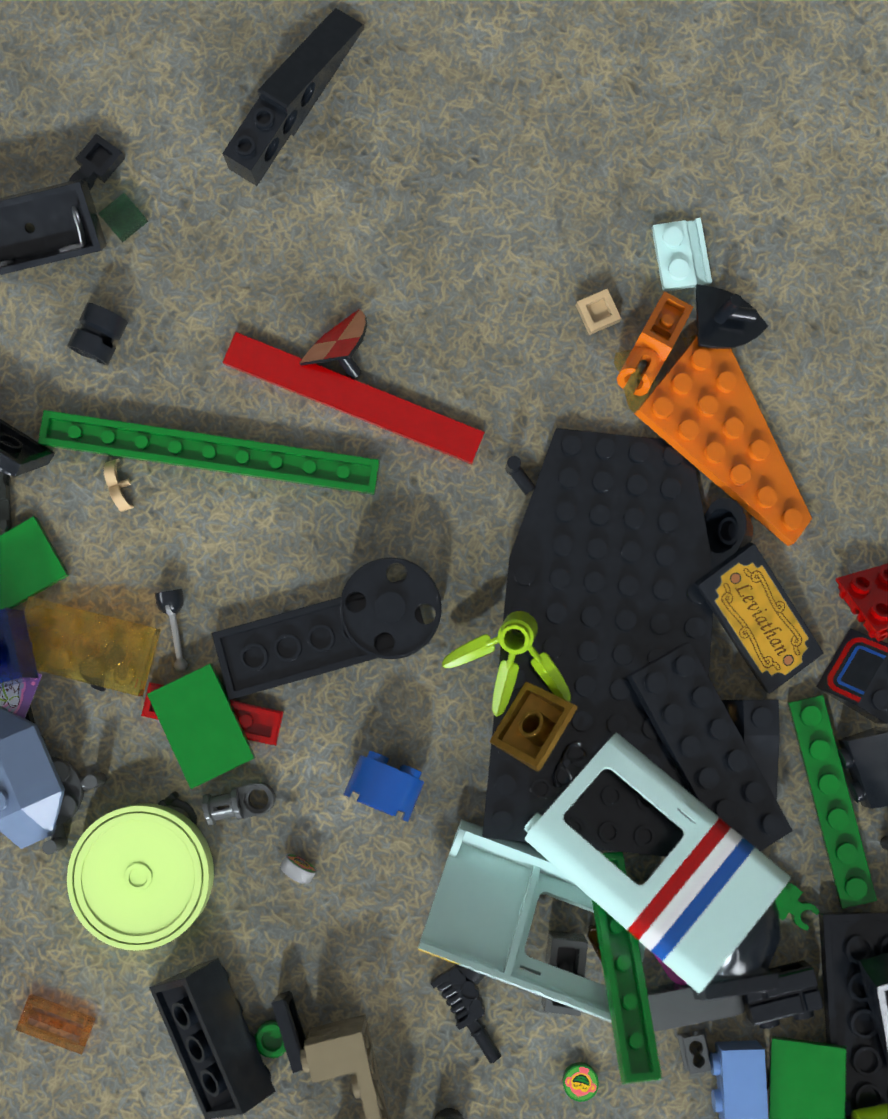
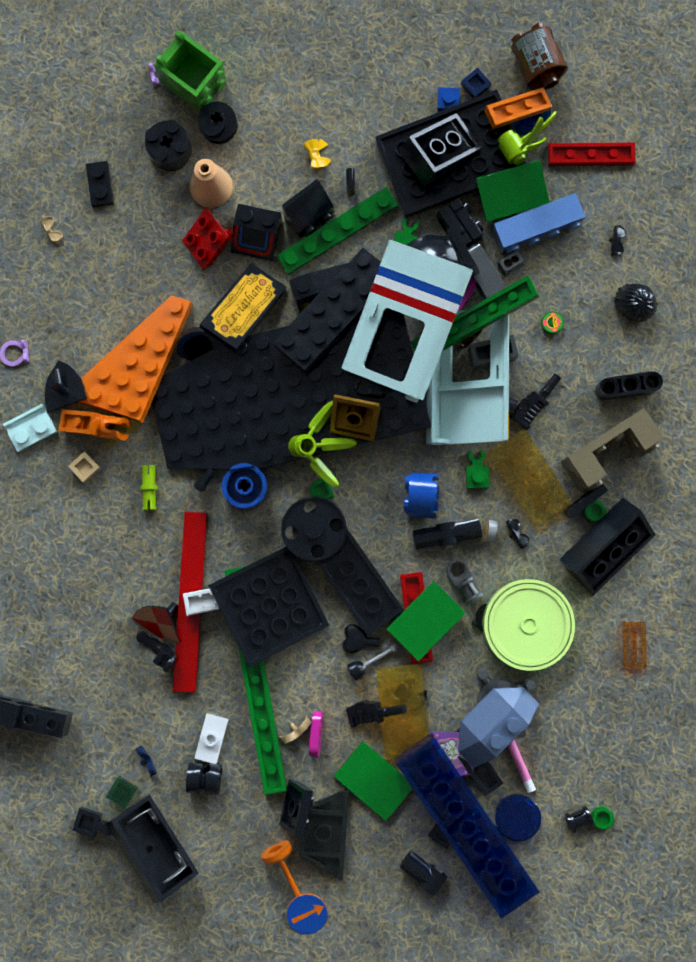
camera: 105 degrees left, 0 degrees up
(100, 511) = (316, 734): none -> dark pink tile
(100, 601) = (371, 711): none -> black piece
(150, 363) = (211, 738): none -> white plate
(156, 266) = (147, 759): none -> dark blue piece
(212, 617) = (357, 639): none -> black rock
(288, 338) = (165, 655): none -> black piece
(292, 907) = (514, 526): none -> black piece
(304, 505) = (268, 606): none -> black plate
(316, 803) = (447, 533): none -> black piece
(344, 420) = (199, 602): none -> white plate
(356, 958) = (529, 477): none -> clear yellow tile
(389, 879) = (476, 474): none -> green plate
(446, 639) = (321, 489): none -> green tile
(475, 515) = (234, 480): none -> blue brick
(537, 393) = (149, 487): none -> lime pin
(787, 278) = (24, 358): none -> lavender piece

